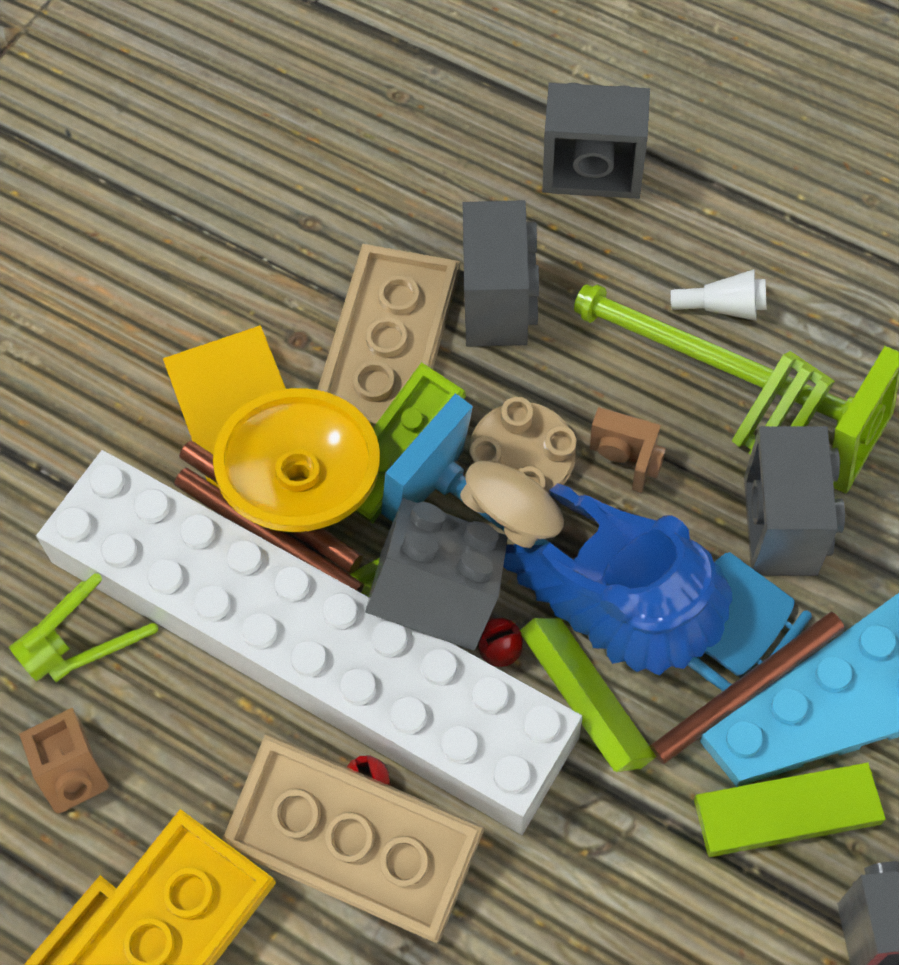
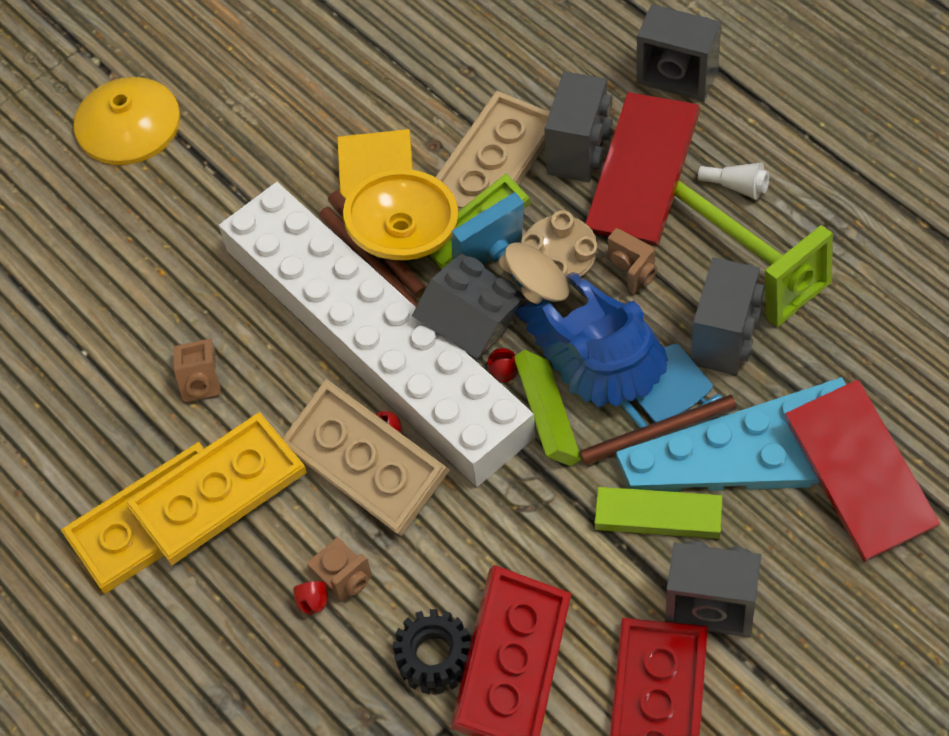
camera: 20 degrees right, 5 degrees down
(42, 647) = (203, 296): lime plant -> none
(602, 312) = (643, 167): none -> red tile
(806, 372) = (746, 242): lime tile -> none

